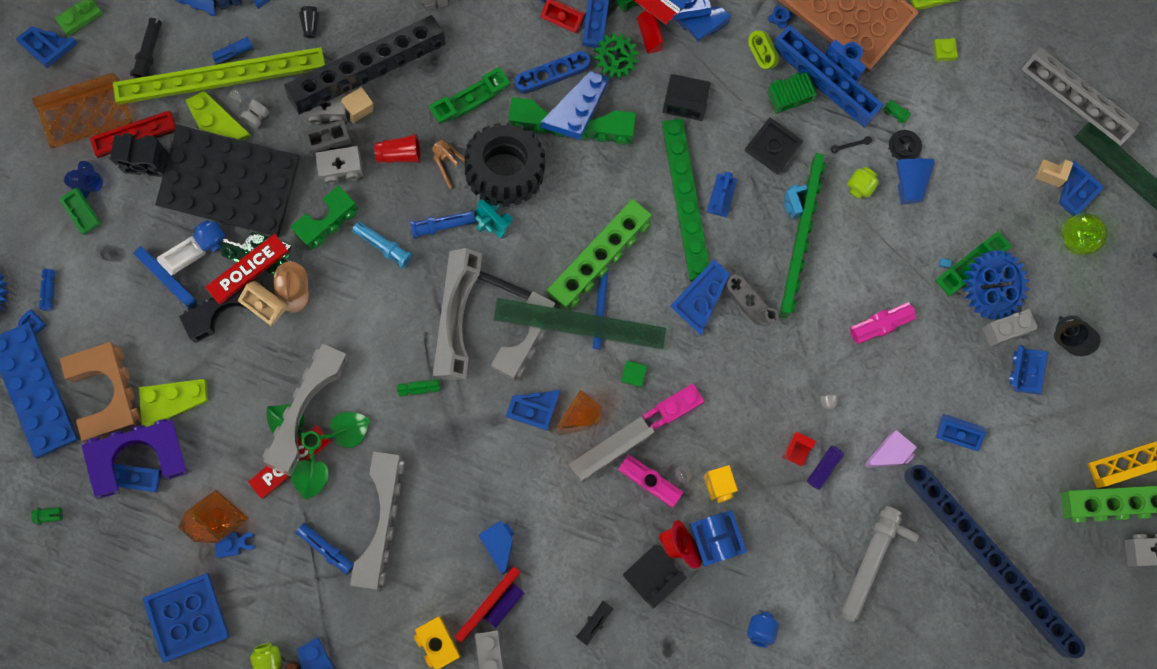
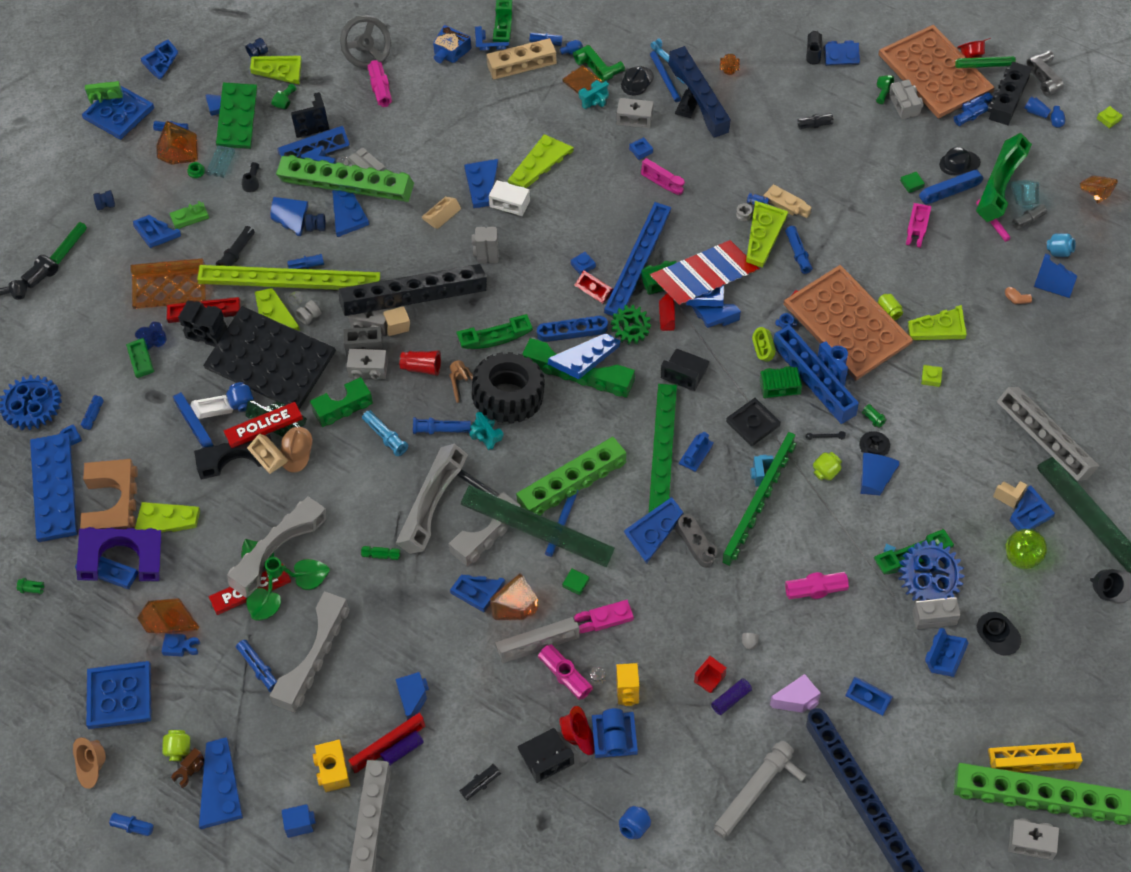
camera: 20 degrees right, 20 degrees down
(309, 20) = (376, 251): black cone -> none

